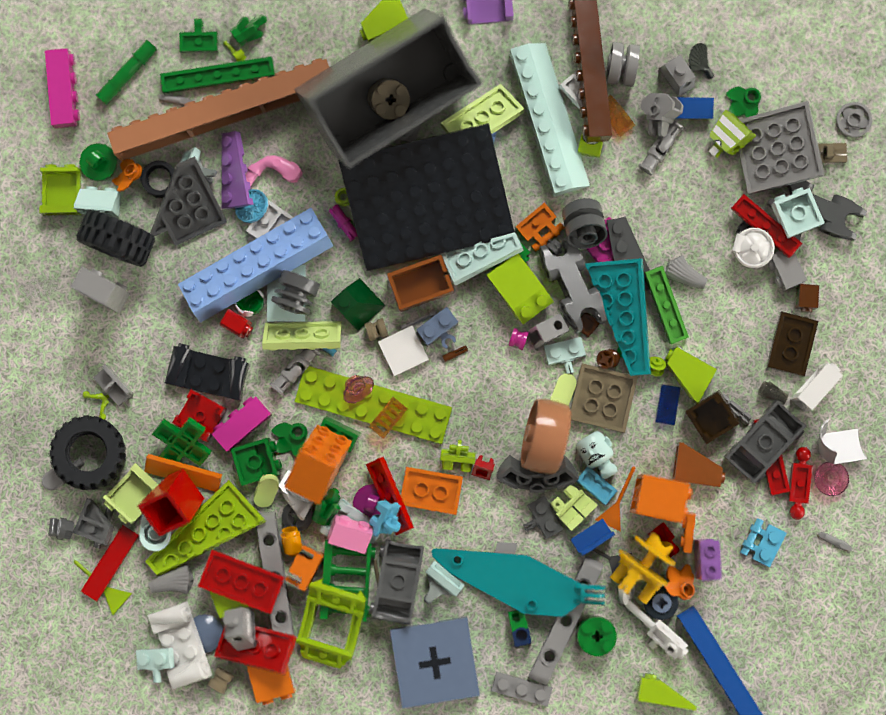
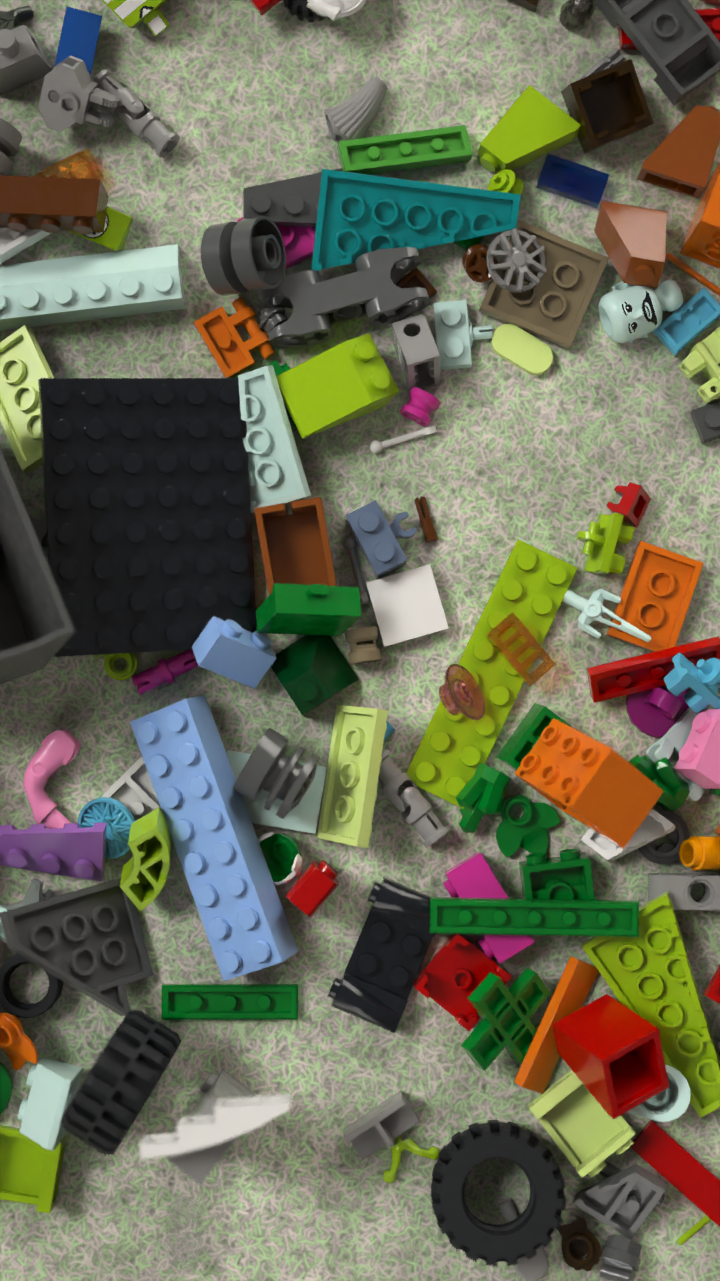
camera: 85 degrees left, 0 degrees up
(65, 505) = (579, 1245): none -> dark brown animal
(106, 294) = (230, 1119): none -> white slope
(167, 290) = (229, 1001): none -> green tile
(237, 232) = (148, 868): none -> lime brick
(240, 448) = (534, 916): none -> green tile
(266, 490) = (611, 880): yellowish green tile -> none
(302, 410) = (481, 796): none -> green rock
(359, 257) = (234, 651): none -> light blue brick
(389, 294) = (309, 610): none -> green container
(418, 456) = (593, 610): none -> light aqua piece
(492, 318) = (377, 446): none -> white hinge
(517, 477) = (659, 414): dark grey brick -> none
(546, 436) = (602, 381): nougat wheel -> none
(611, 378) = (516, 260): none -> light grey wheel
(635, 444) = (633, 241): none -> dark orange slope

